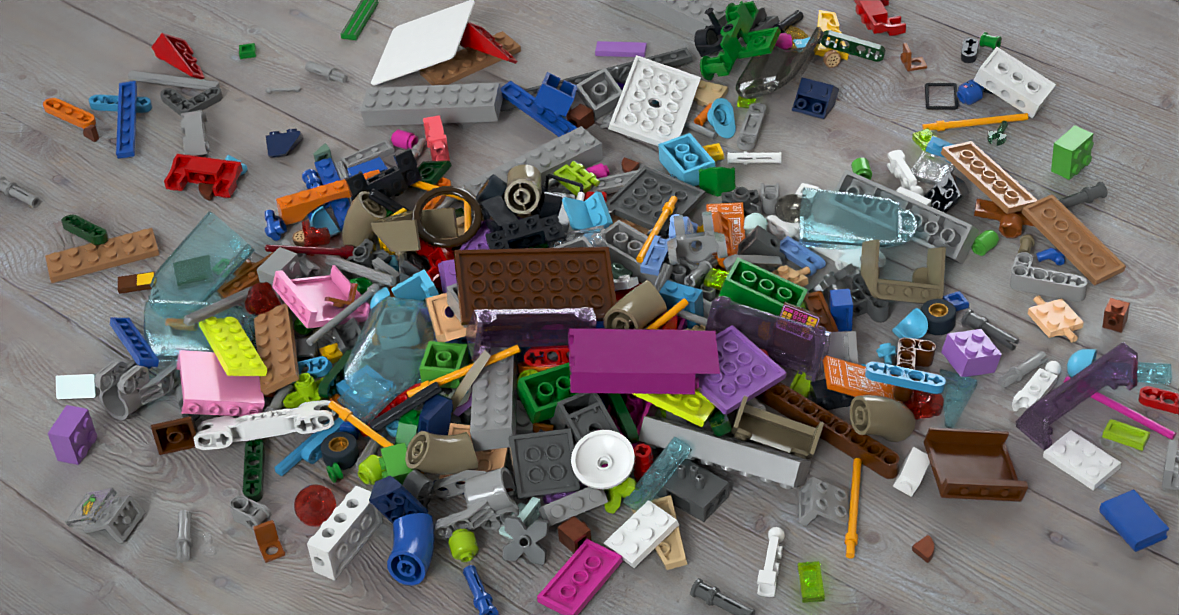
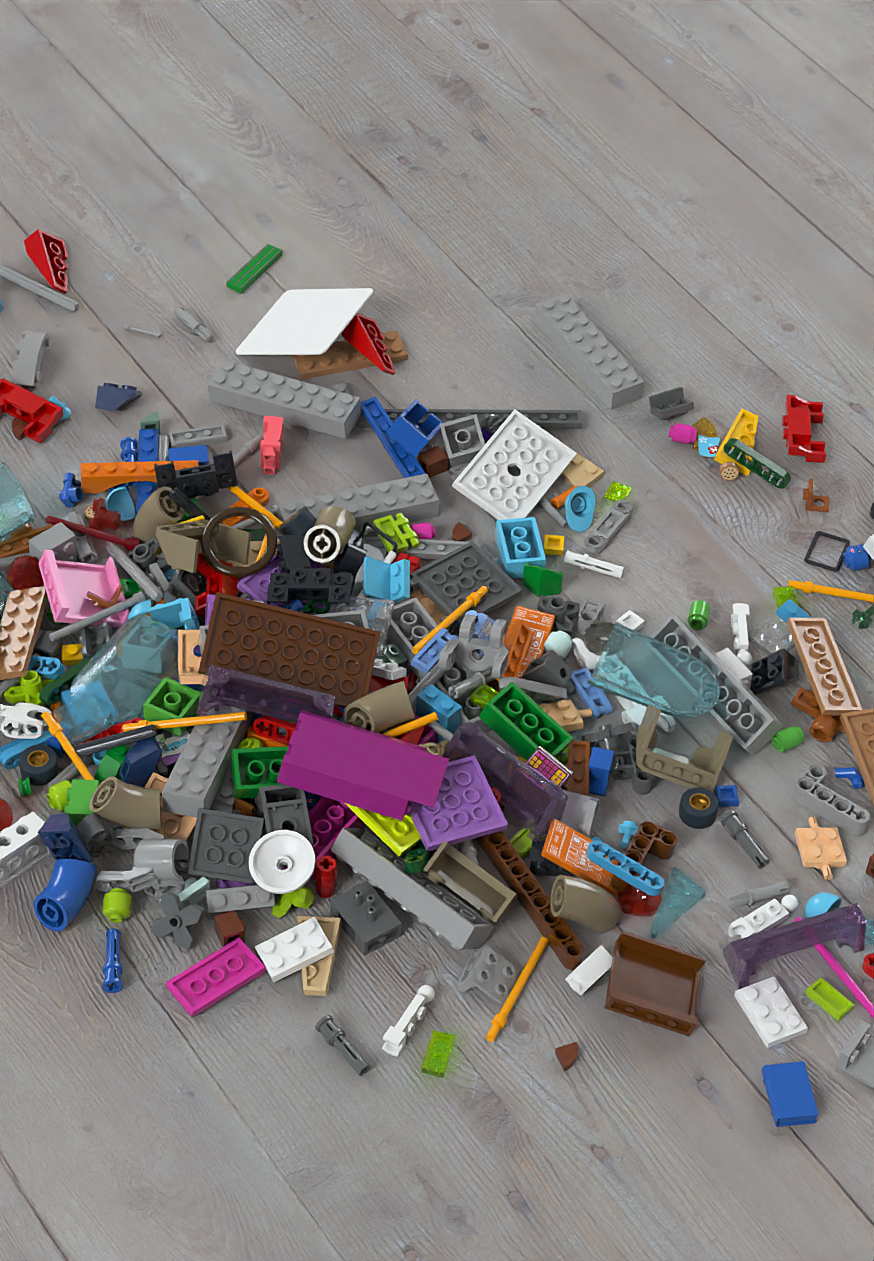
camera: 10 degrees right, 5 degrees up
(207, 98) = (69, 315): dark grey beam -> none
(247, 51) = (123, 273): green tile -> none
(404, 139) = (241, 430): dark pink brick -> none
(433, 171) = (253, 477): dark green tile -> none
(469, 379) = (185, 733): sticker -> none
(620, 49) = (512, 390): medium lavender tile -> none
(623, 417) = (323, 824): dark green beam -> none
(658, 474) = (334, 892): clear light blue plate -> none
(740, 20) = (621, 413): green piece -> none
(775, 70) = (661, 465): clear smoke windscreen -> none
(790, 20) = (691, 417): black pin -> none
(815, 98) = (689, 514): dark blue slope -> none
(912, 326) = (666, 811): medium azure helmet -> none
(971, 353) = (711, 860): medium lavender brick -> none
(1027, 242) = (832, 752): dark tan pin -> none

